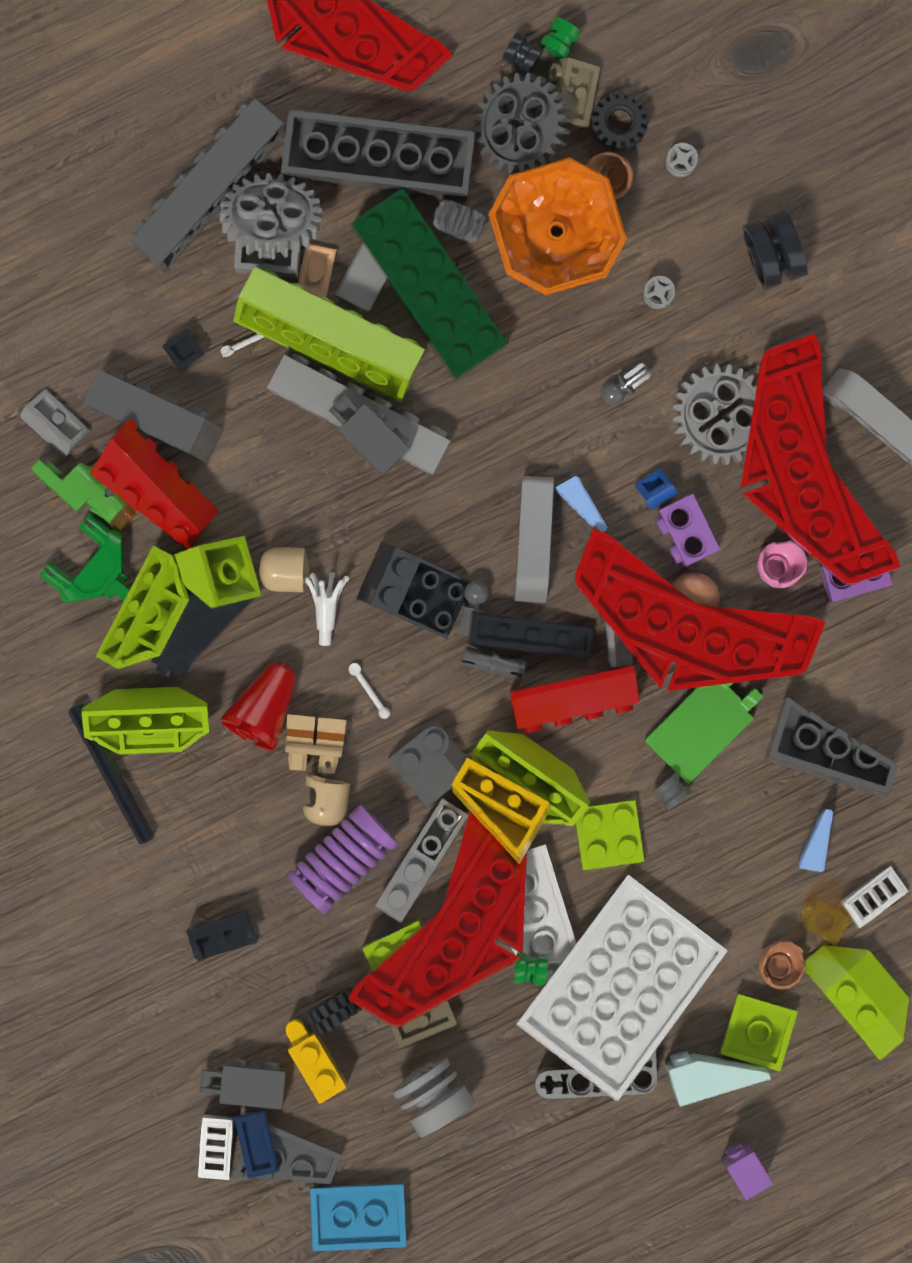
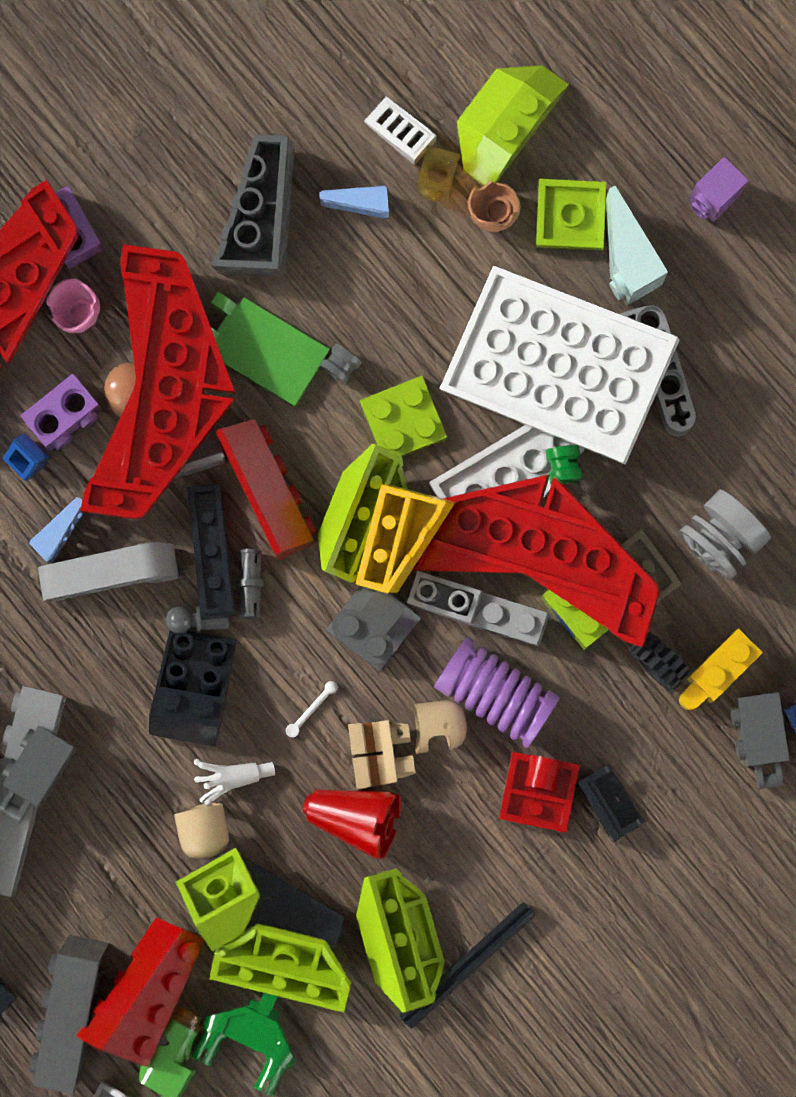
camera: 95 degrees left, 5 degrees down
(246, 874) = (539, 792): none -> red plate

